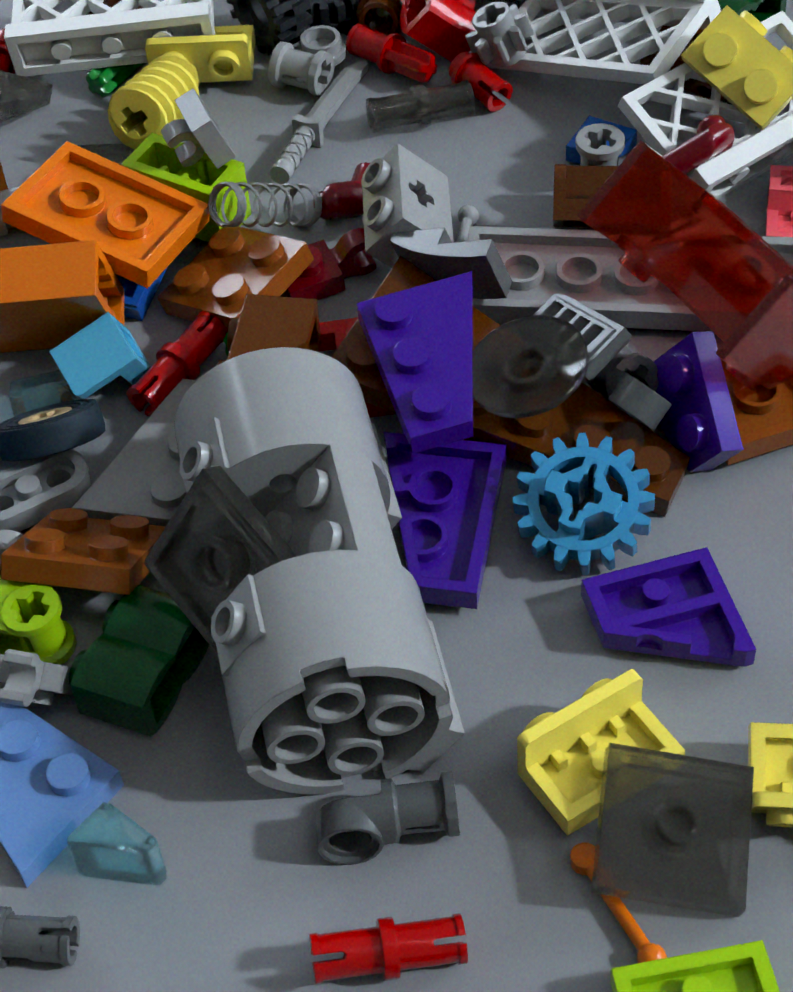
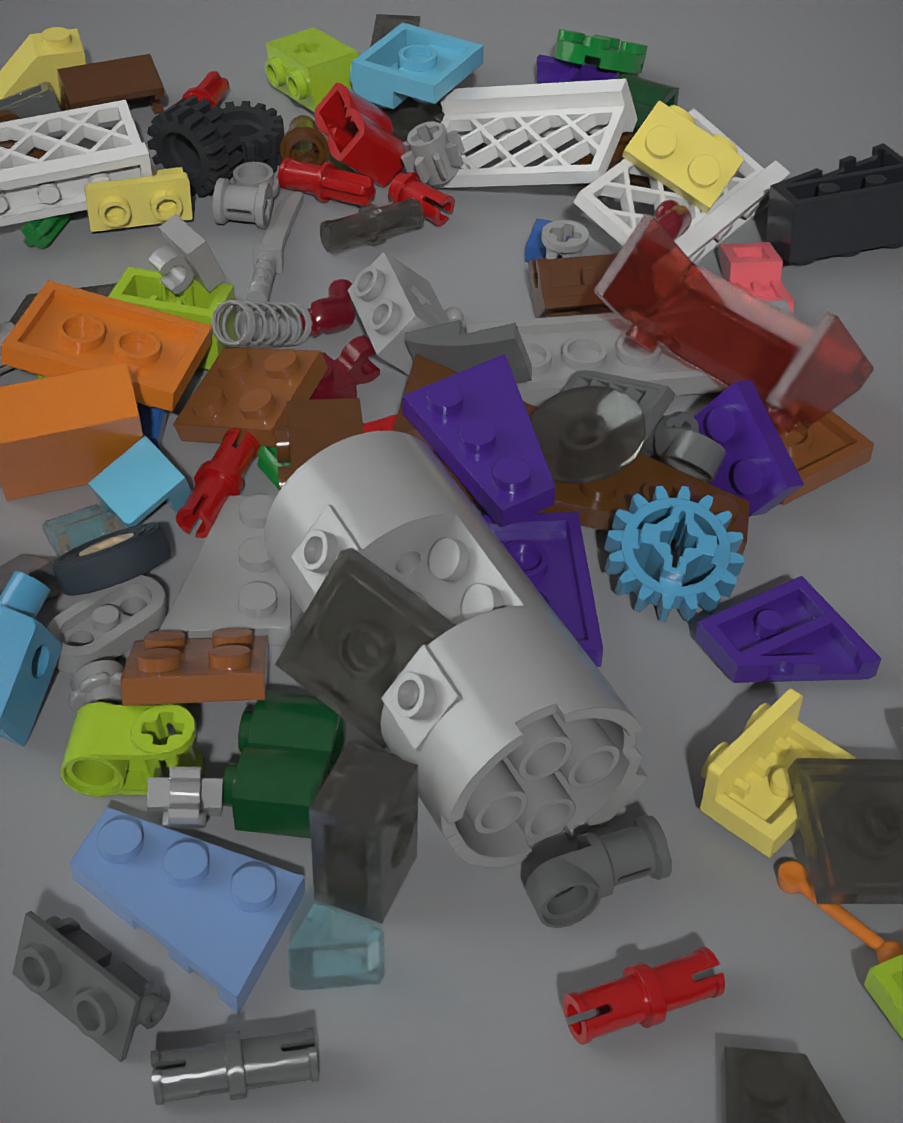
camera: 20 degrees left, 5 degrees down
(149, 99) = (109, 242): light yellow piece -> none
(173, 739) = (364, 831): none -> clear smoke brick

